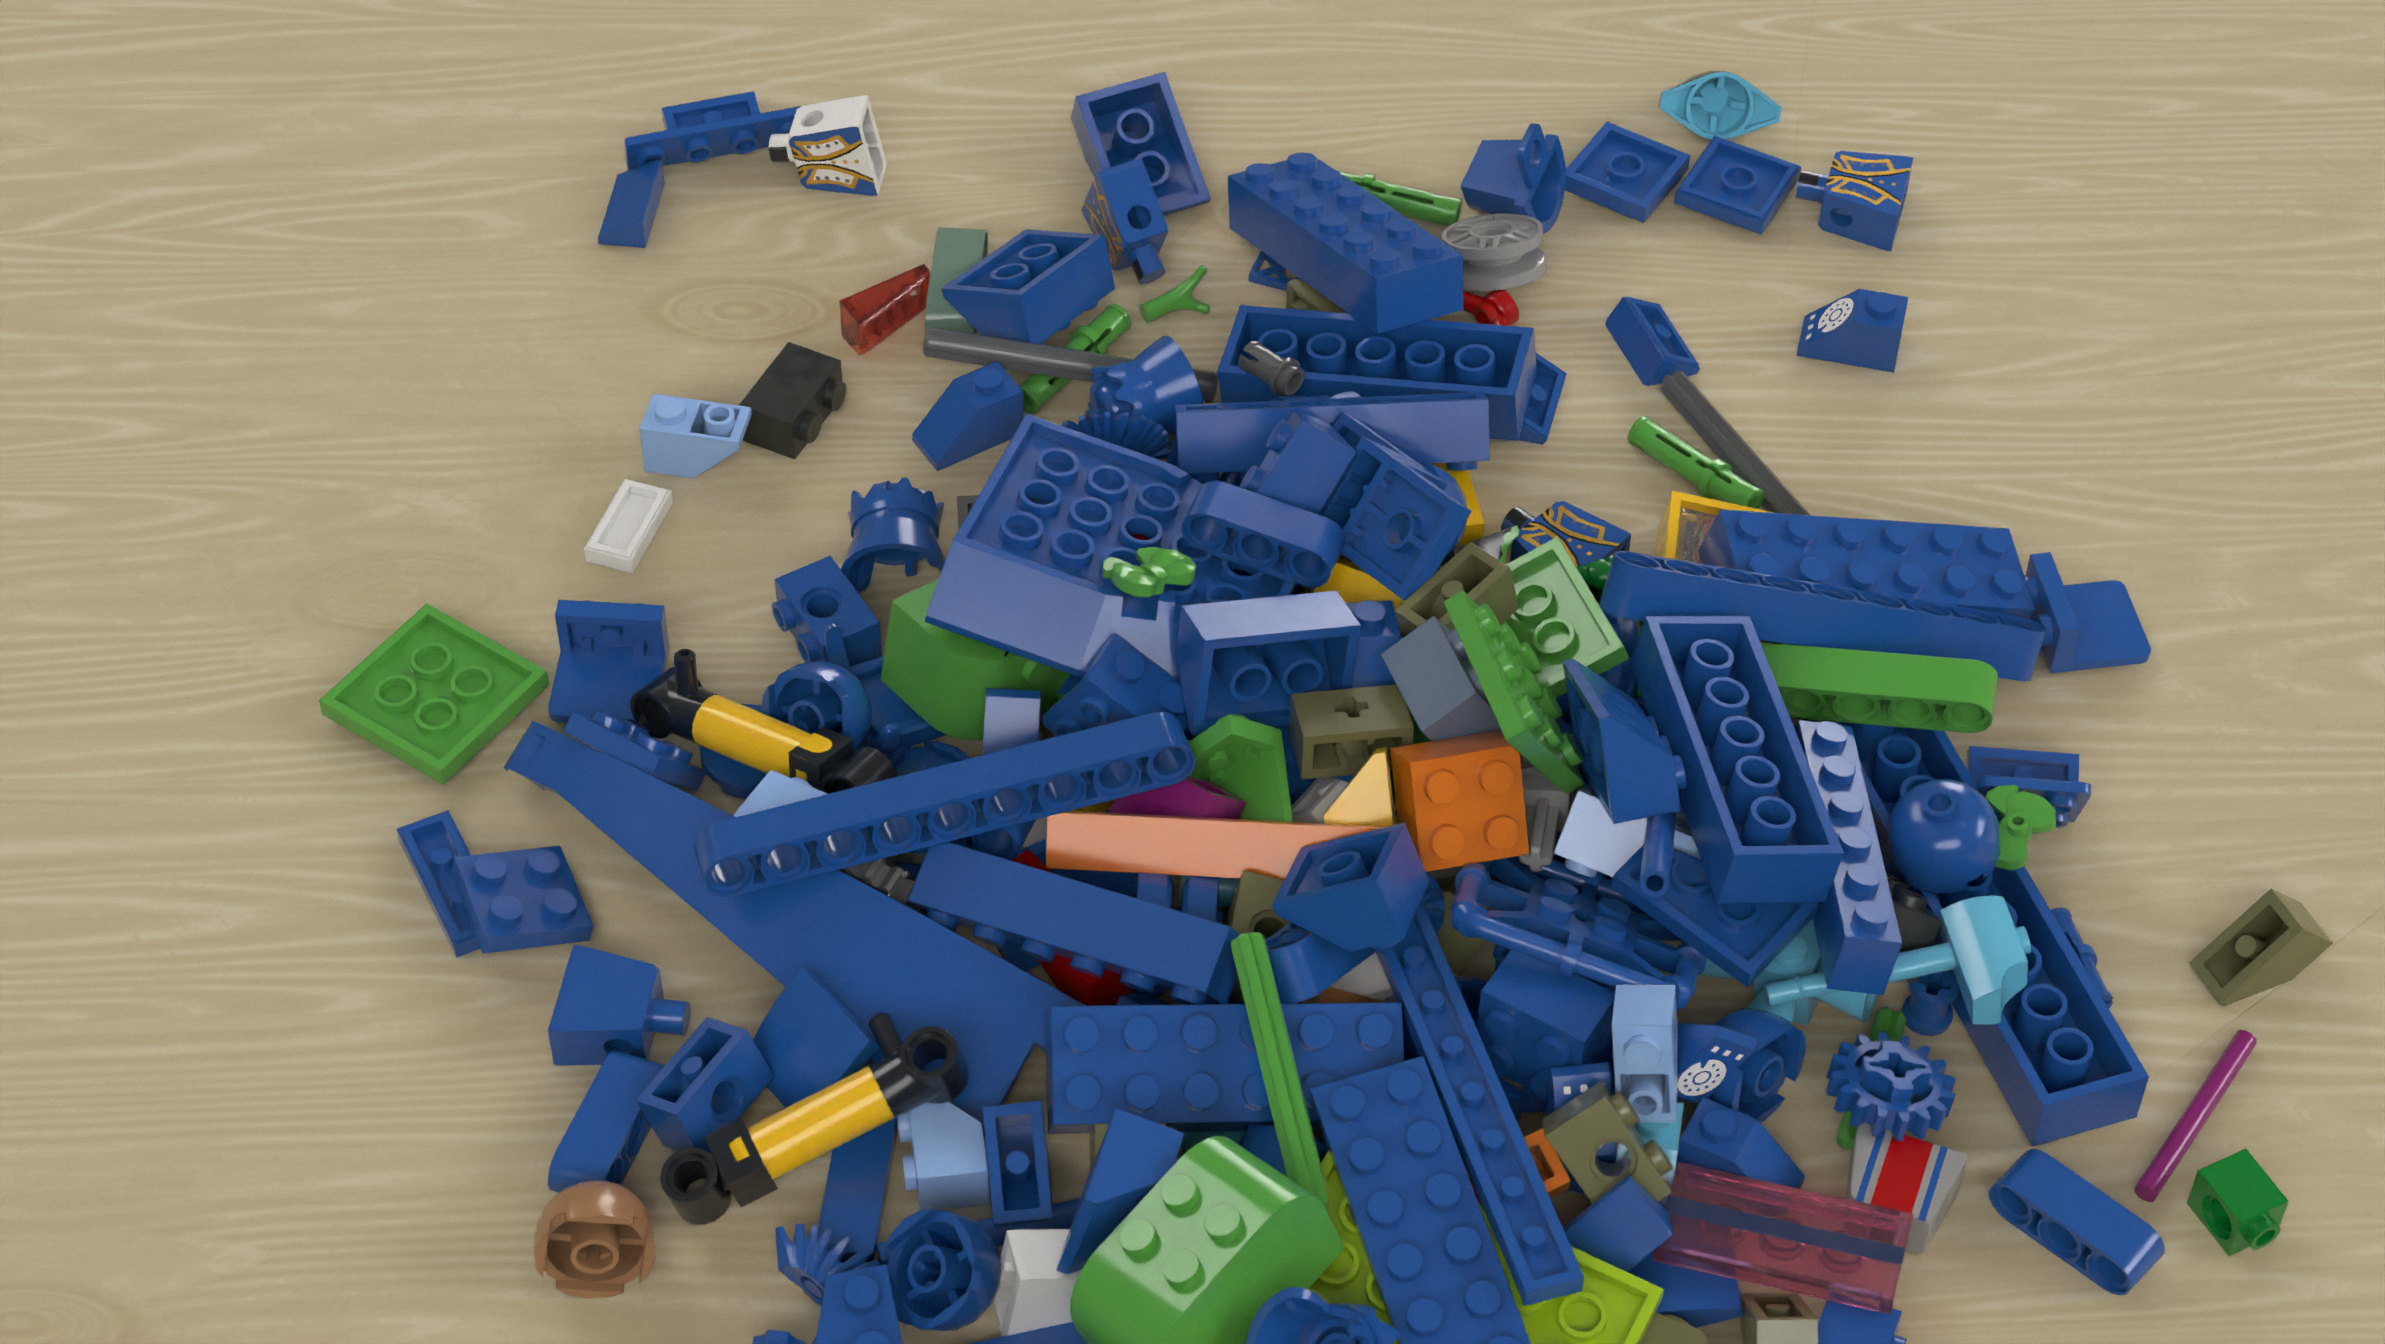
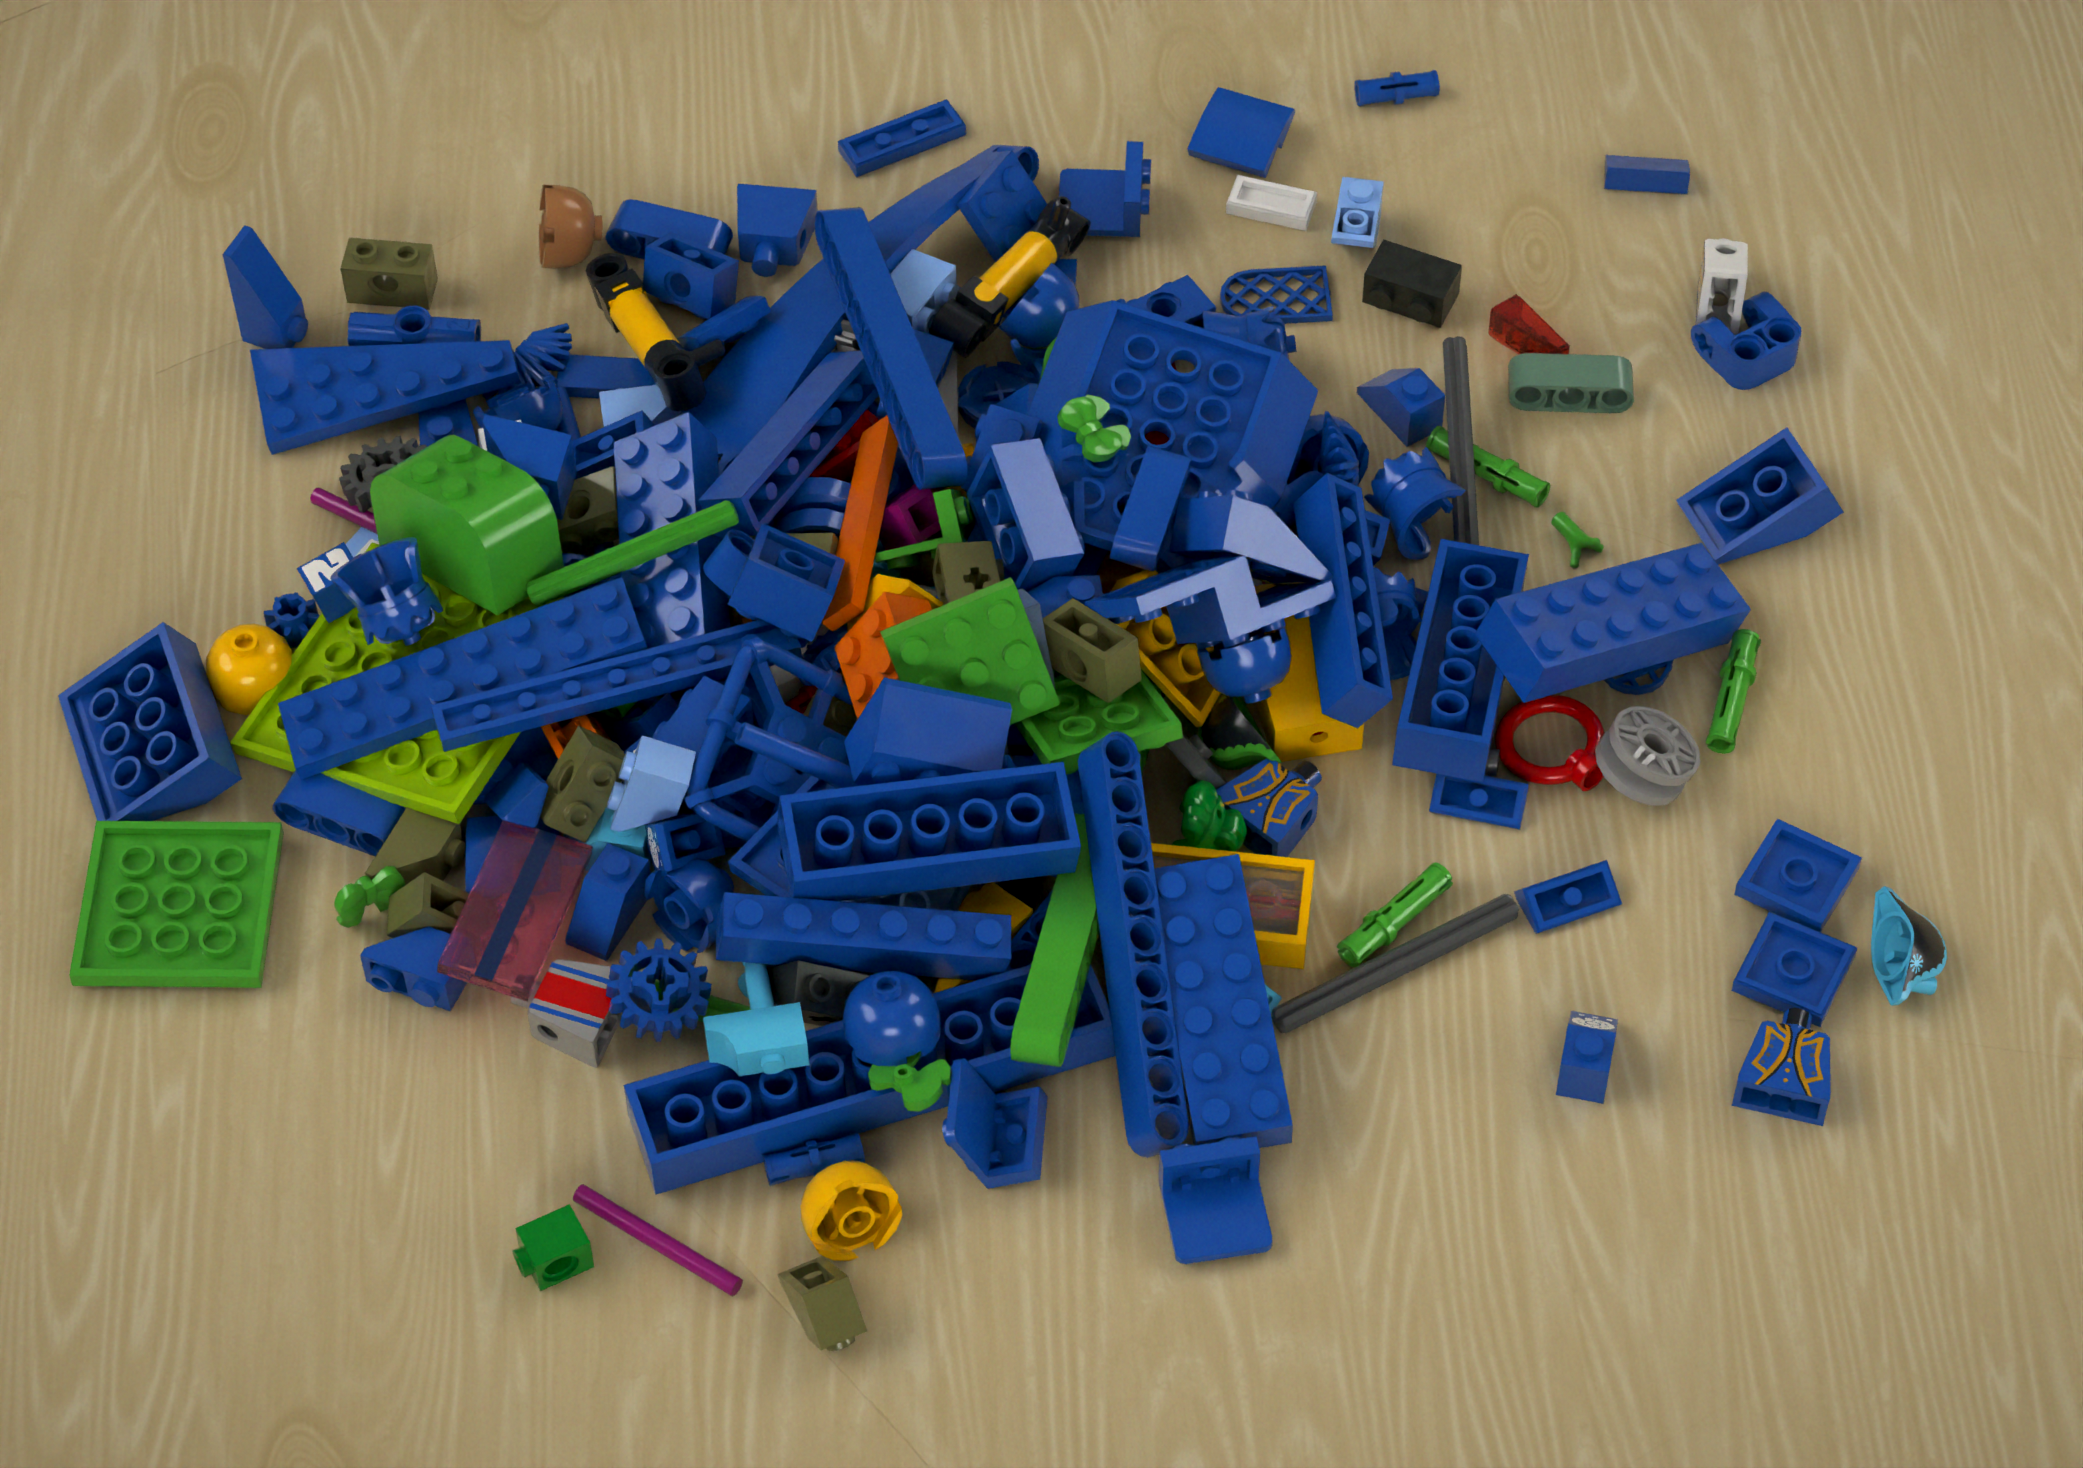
camera: 90 degrees right, 5 degrees up
(434, 693) = (1080, 104): bright green plate -> none
(460, 401) = (1396, 88): none -> blue pin
(514, 538) = (1240, 132): none -> blue slope
(521, 899) = (875, 167): blue plate -> none
(708, 130) = (1746, 207): blue bracket -> none
(775, 488) = (1287, 274): none -> blue window
(925, 138) = (1756, 353): none -> blue piece
(1033, 285) = (1551, 421): blue slope -> none
(1129, 217) = (1646, 484): blue torso -> none
(1280, 373) = (1421, 569): dark grey pin -> none
(1518, 177) = (1743, 779): blue container -> none
(2076, 1222) = (543, 1131): blue beam -> none
(2147, 919) = (849, 1208): none -> yellow cylinder

